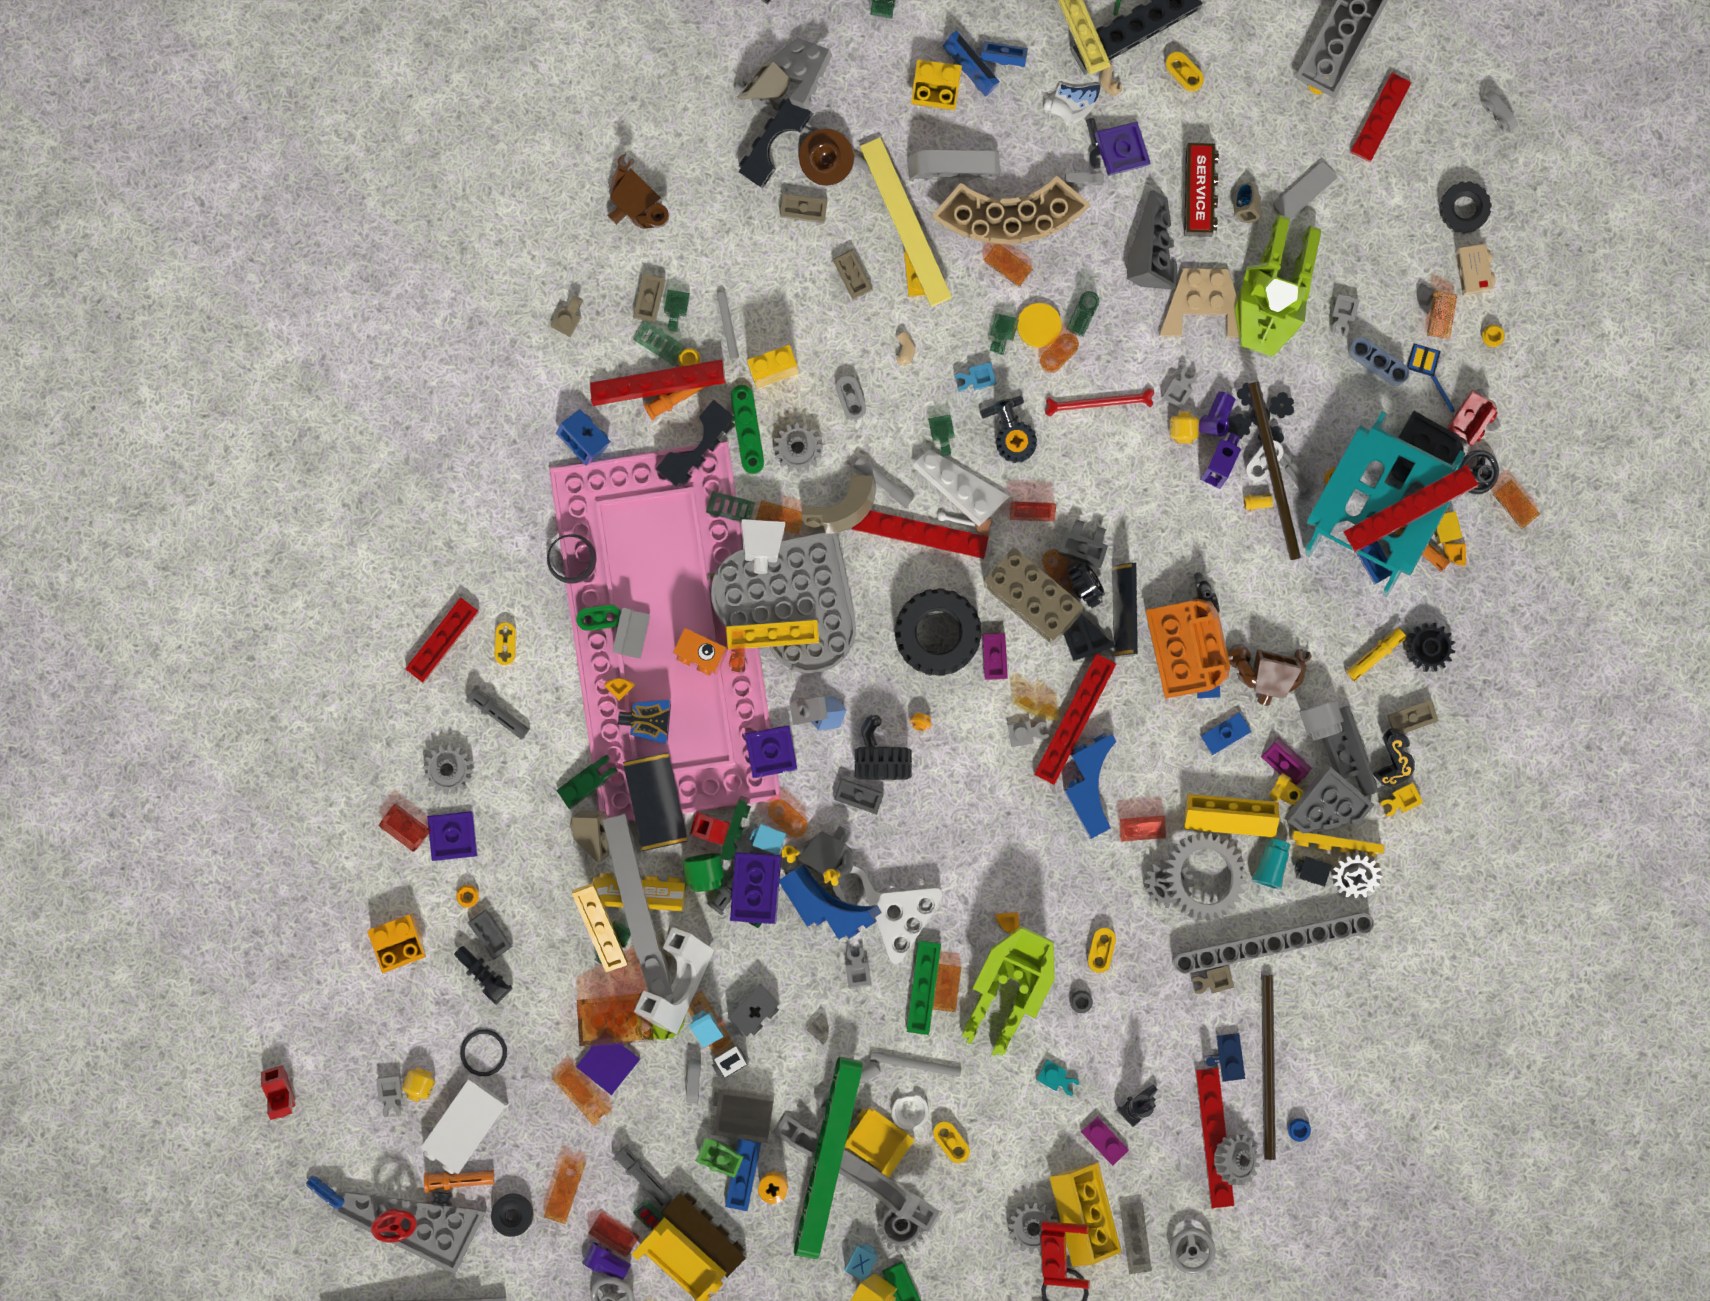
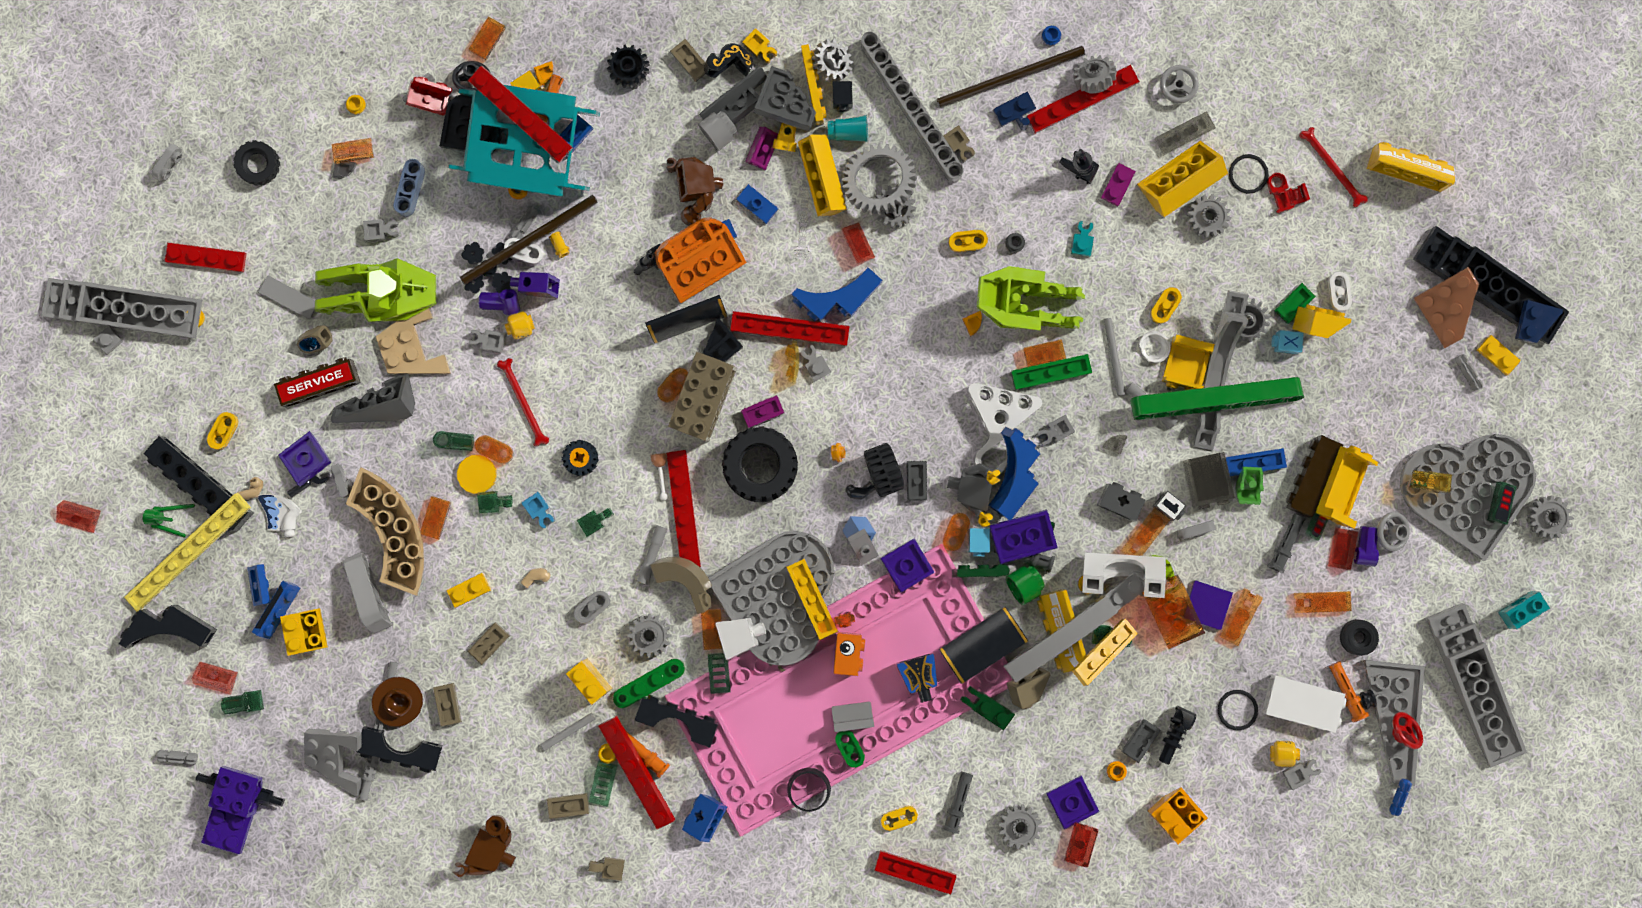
camera: 115 degrees left, 0 degrees up
(278, 1092) = (1335, 866): red brick -> none
(619, 687) = (900, 710): light orange tile -> none
(676, 305) = (567, 781): clear green plate -> none
(705, 1028) = (1152, 535): medium azure slope -> none
(709, 828) = (989, 592): red brick -> none
(766, 83) = (351, 774): dark tan slope -> none
(769, 1195) = (1252, 438): light orange piece -> none
(905, 222) = (429, 615): light yellow tile -> none
(962, 488) = (634, 487): white wing -> none
(1005, 411) = (557, 475): black piece -> none
(1032, 511) = (632, 424): clear red slope -> none
(1055, 1255) = (1225, 189): red plate -> none
(1082, 548) = (648, 371): dark grey plate -> none
(1086, 583) = (676, 358): black gear -> none
(1383, 648) = (646, 105): yellow pin -> none
(1425, 361) = (396, 151): piece -> none
(1475, 269) = (305, 137): tan brick -> none

